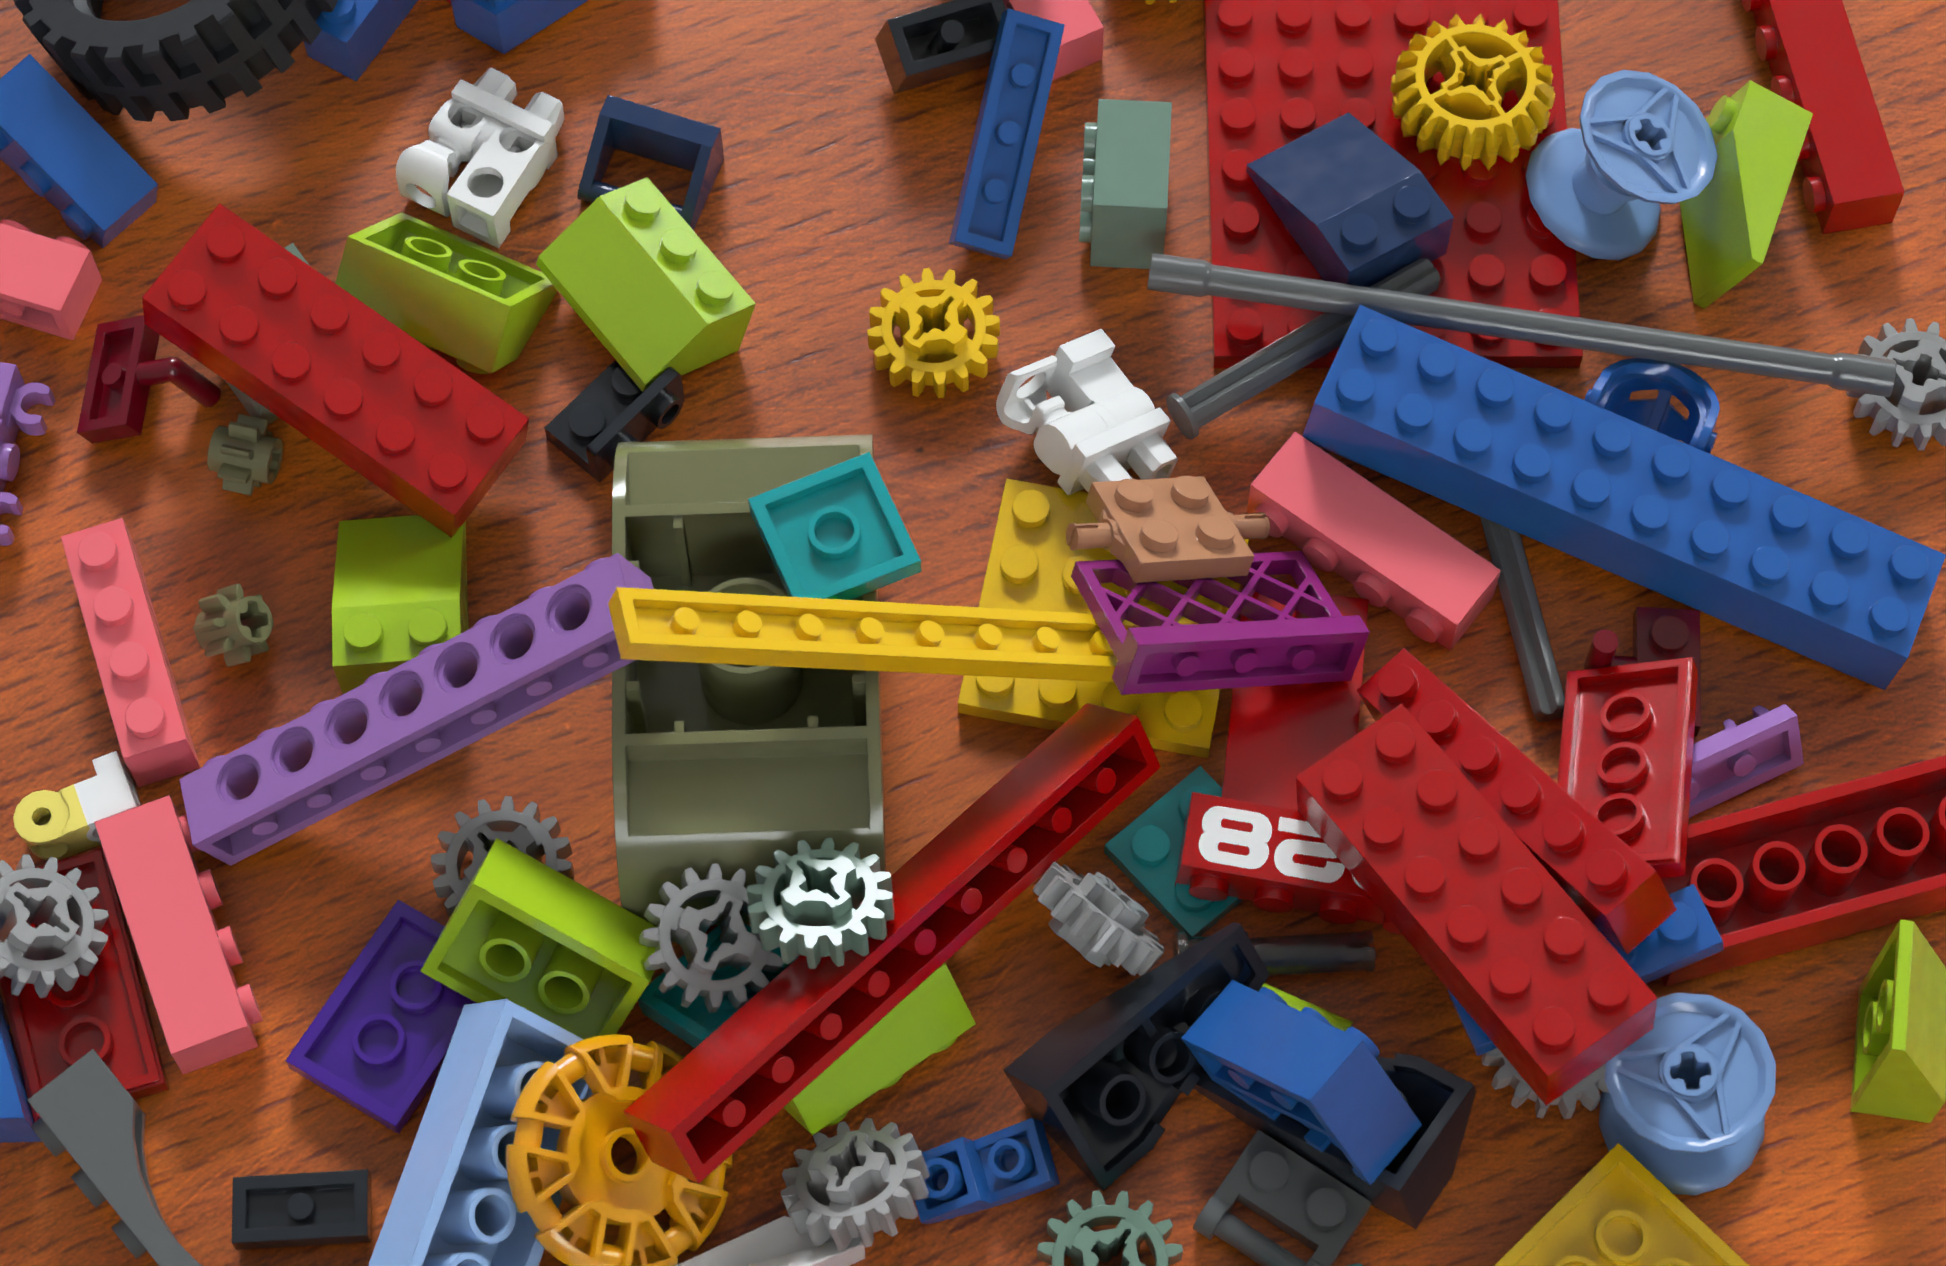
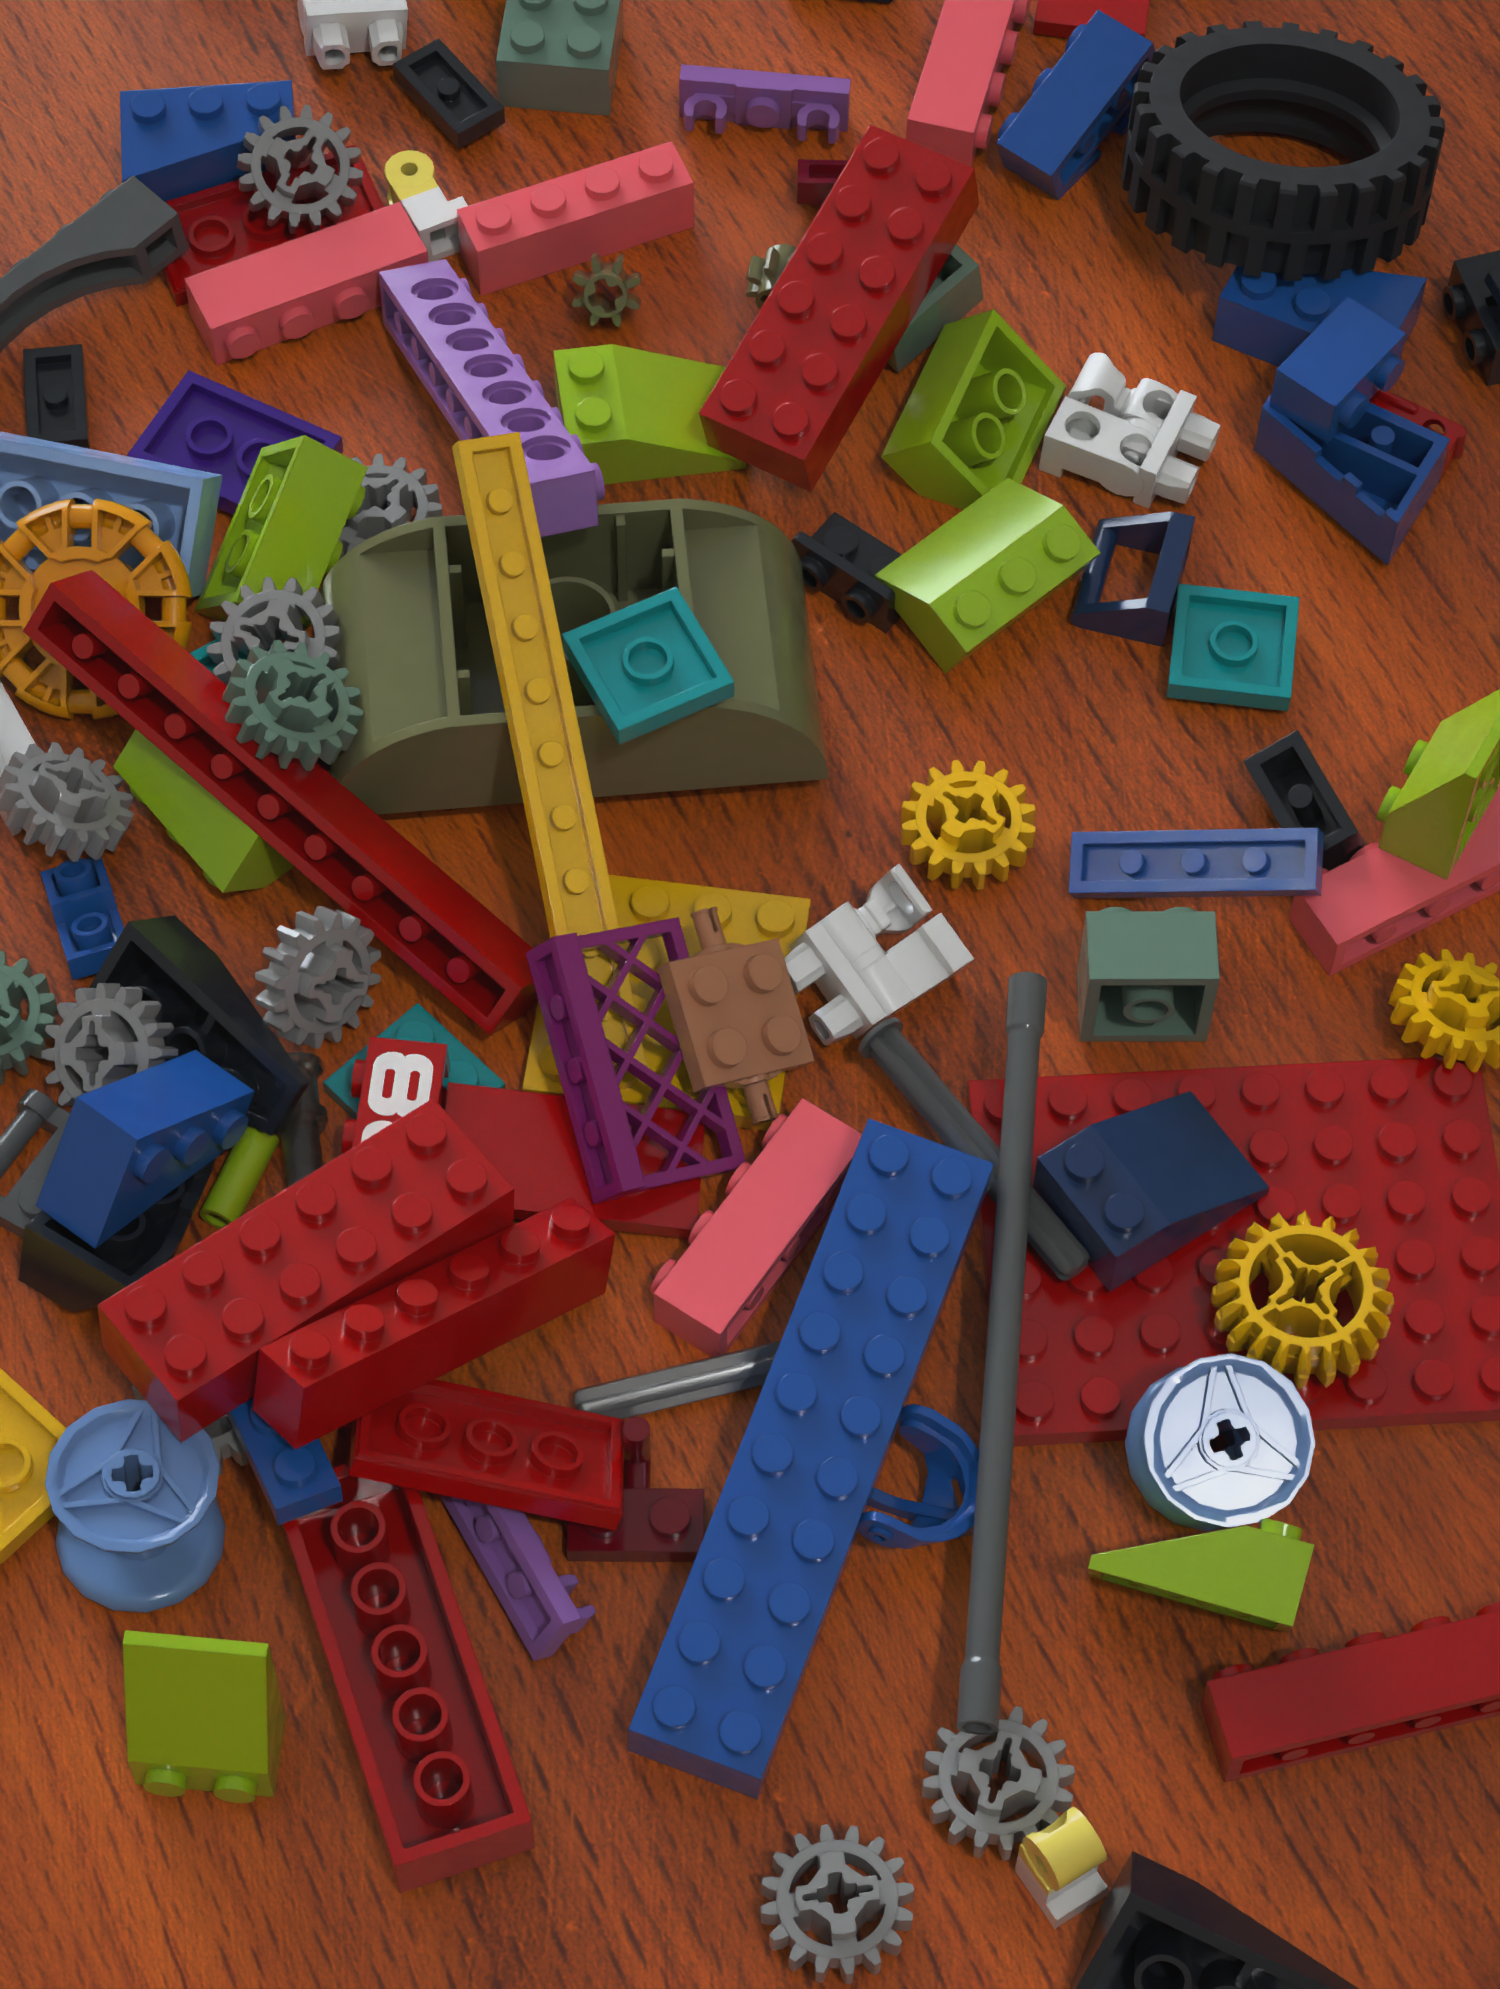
camera: 85 degrees right, 5 degrees down
(747, 88) = (1233, 647): none -> teal plate
(1170, 1164) = (105, 1039): none -> light grey gear

